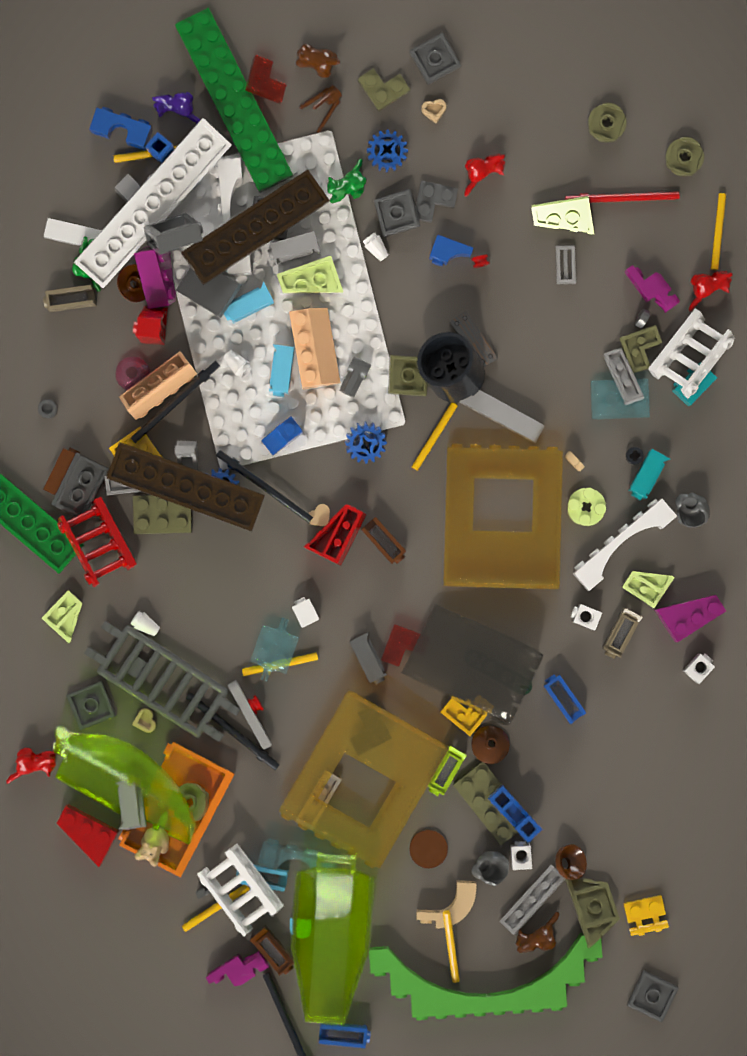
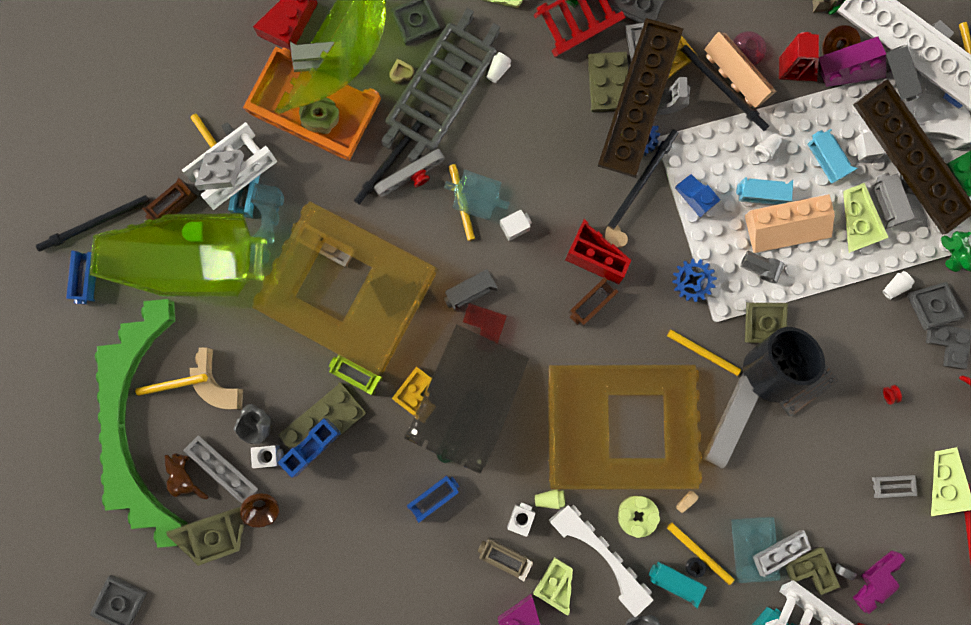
camera: 90 degrees right, 5 degrees down
(153, 844) = (276, 79): tan animal -> none
(212, 296) = (841, 116): dark grey tile -> none
(238, 970) = (150, 169): magenta plate -> none
(247, 897) = (219, 170): none -> light grey plate
(428, 849) = (274, 359): reddish brown piece -> none
(447, 249) = (902, 360): blue arch -> none
(483, 751) = (373, 418): reddish brown dish -> none
(568, 588) = (550, 499): none -> yellowish green cone
(622, 450) = (700, 553): none -> yellow bar
(645, 909) = (210, 590): yellow plate -> none

